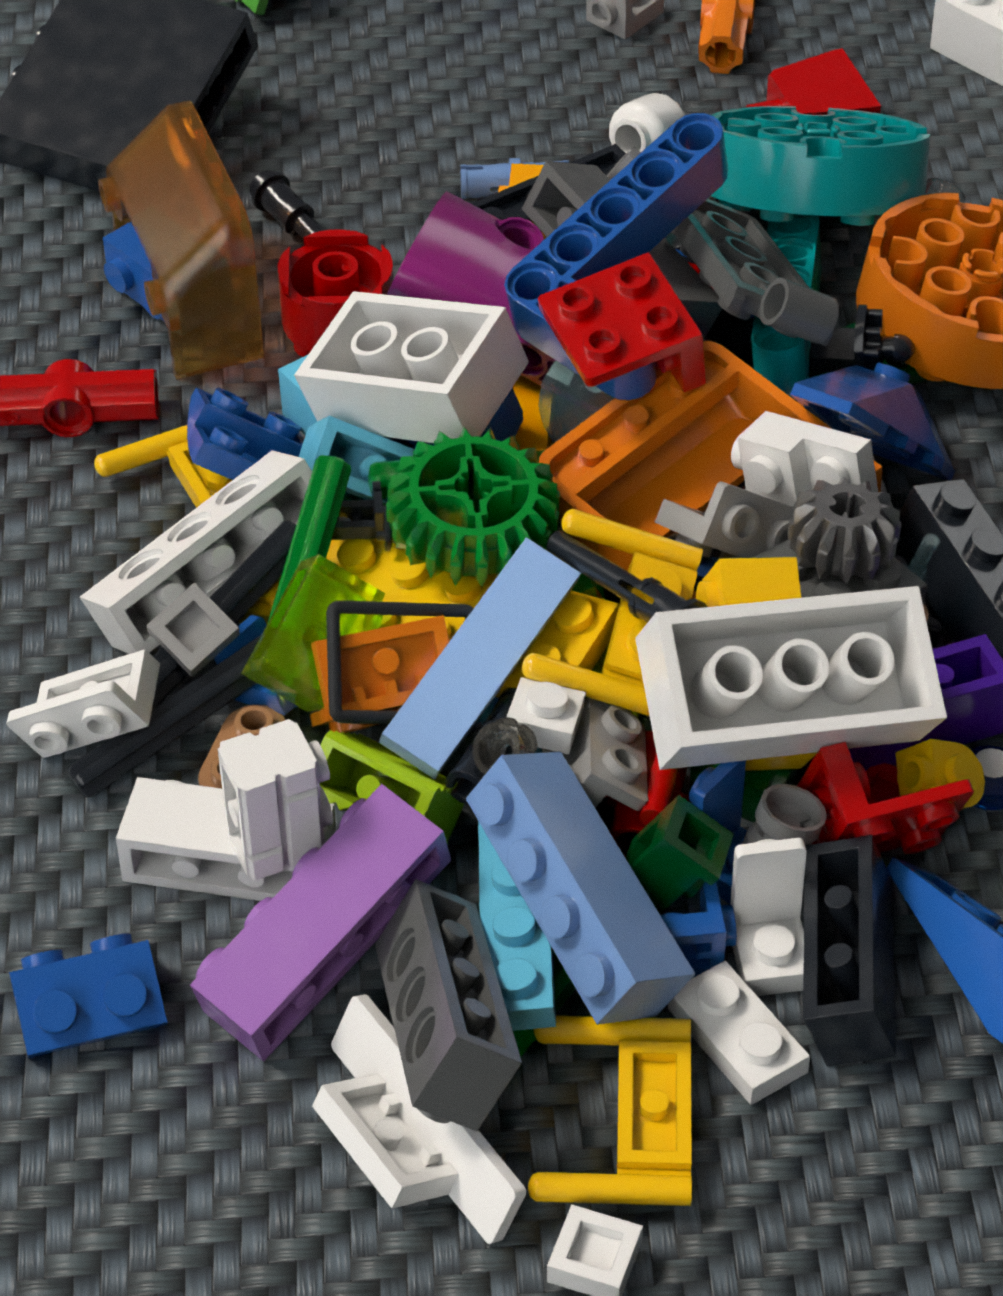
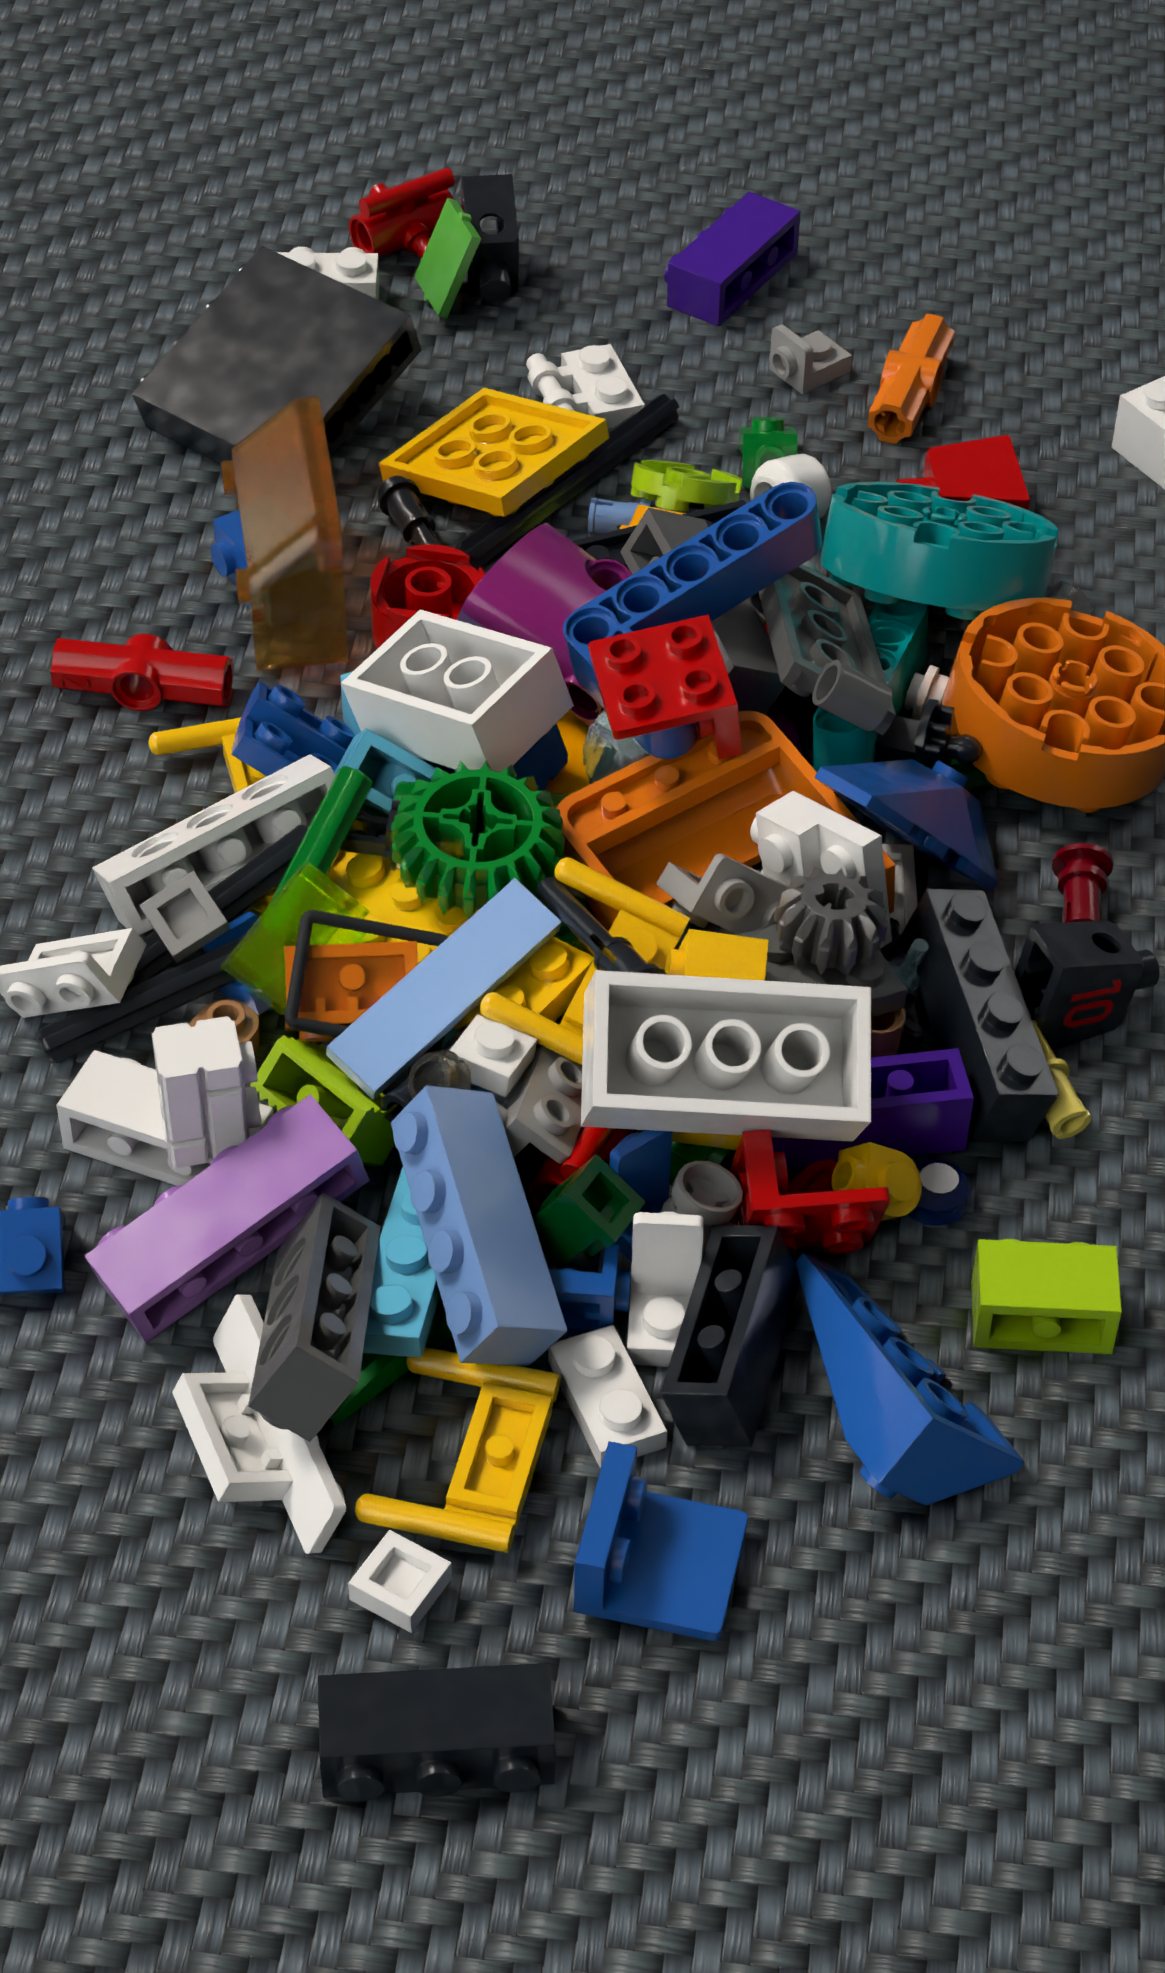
camera: 10 degrees right, 0 degrees up
(354, 133) = (496, 451): none -> yellow plate
(420, 61) = (594, 377): none -> white plate
(432, 149) = (623, 441): none -> black axle
(547, 141) = (678, 484): none -> lime plate
(608, 91) = (764, 442): none -> green bracket
(840, 1181) = (655, 1554): none -> blue bracket
(845, 294) = (925, 688): none -> white plate

